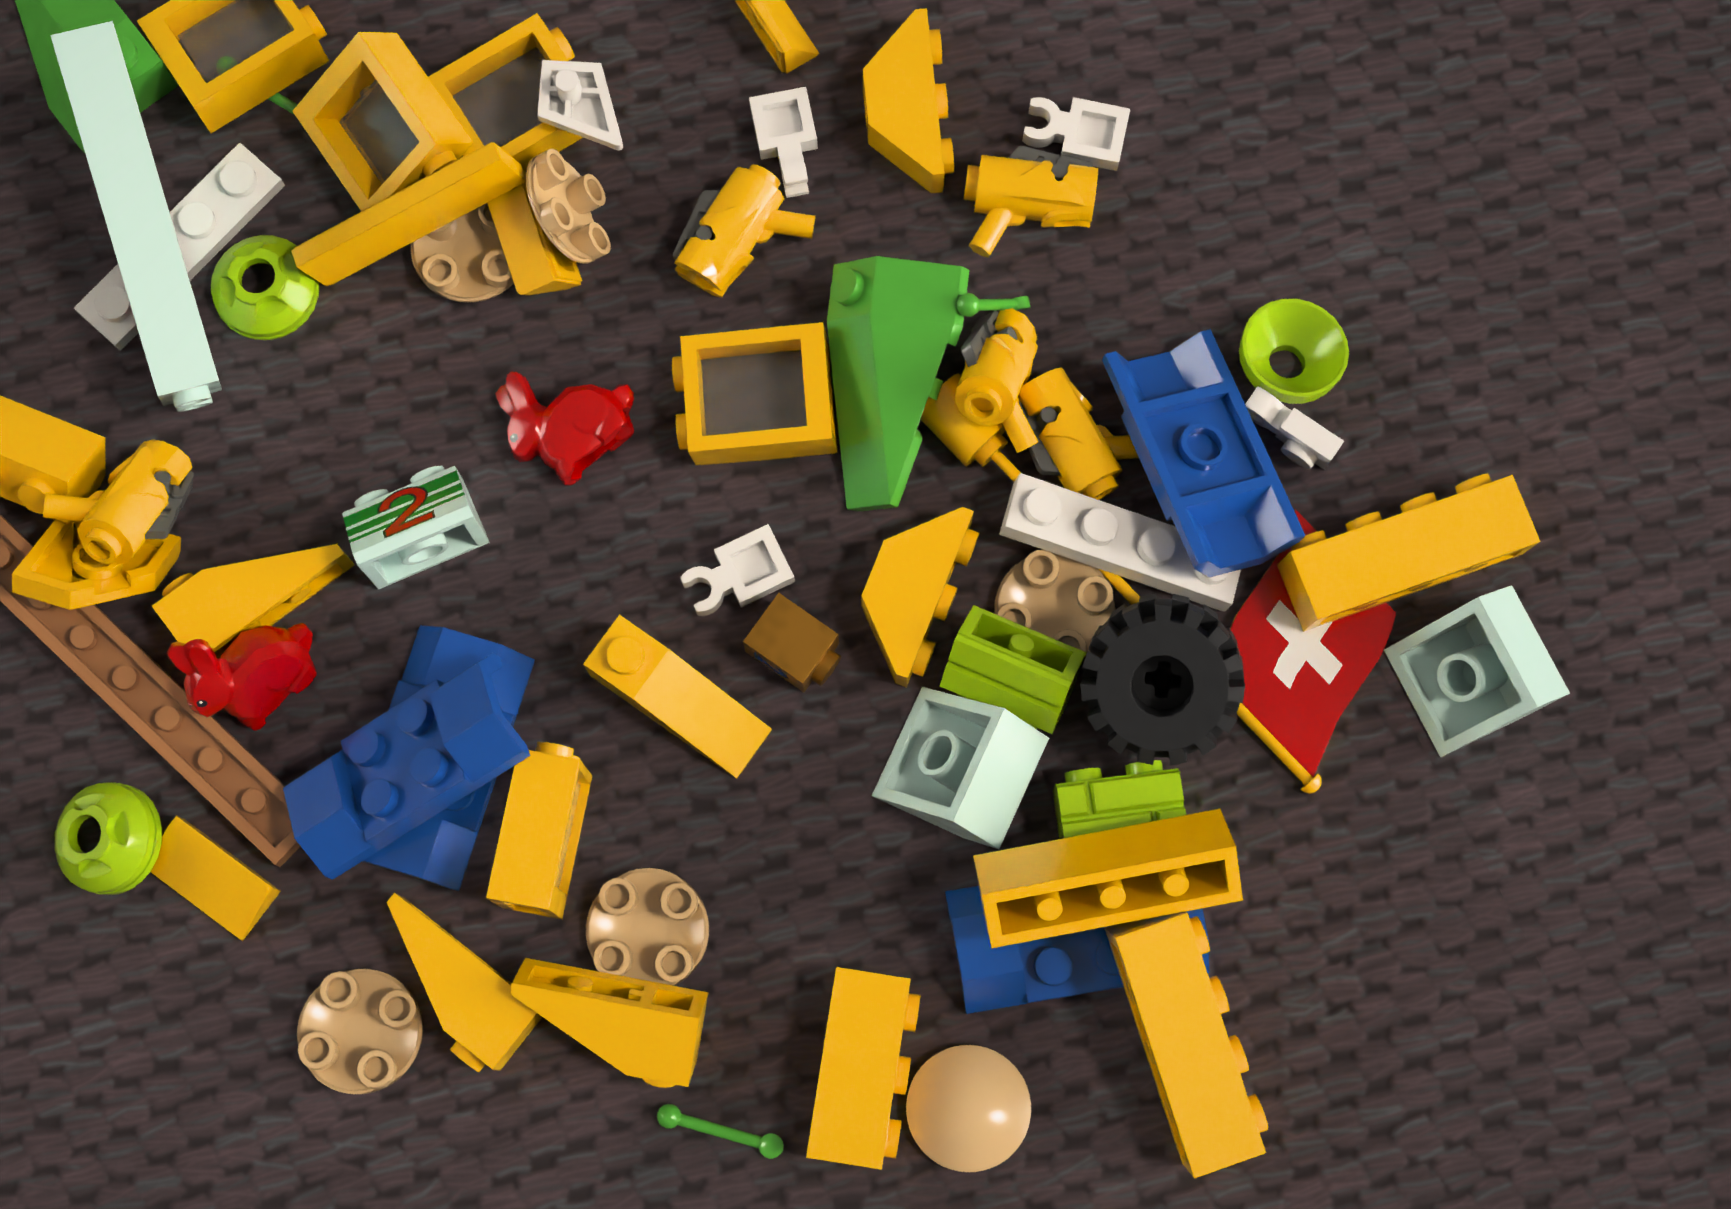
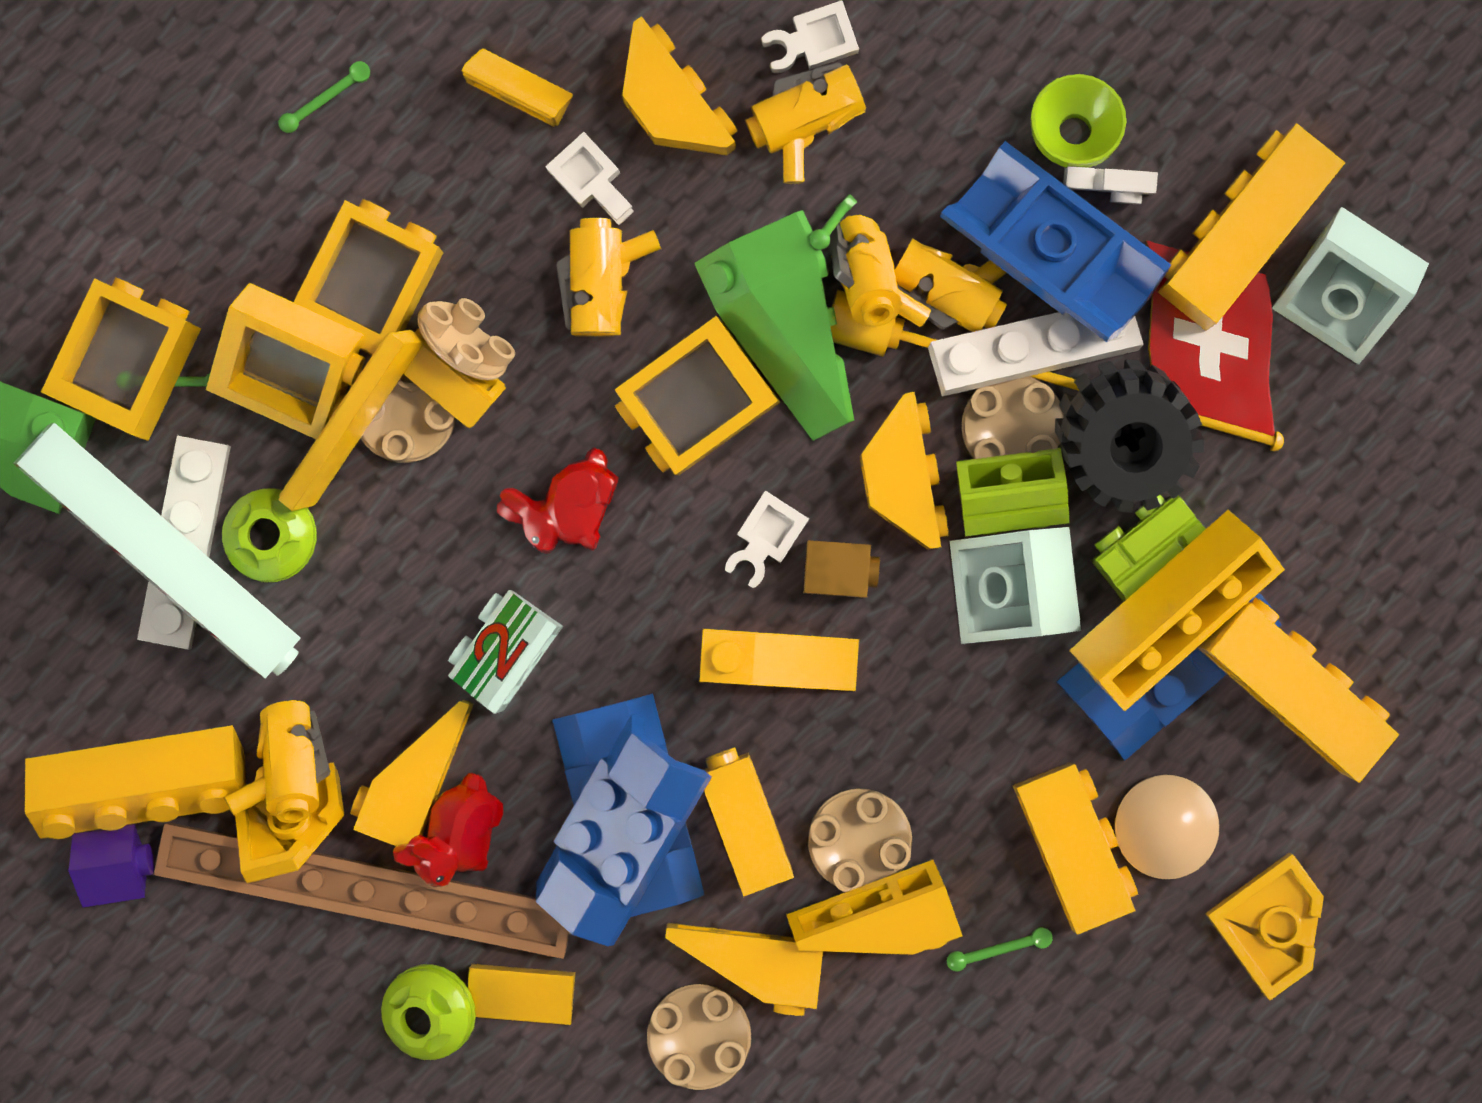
camera: 25 degrees left, 10 degrees up
(578, 101) = (425, 254): white piece -> none

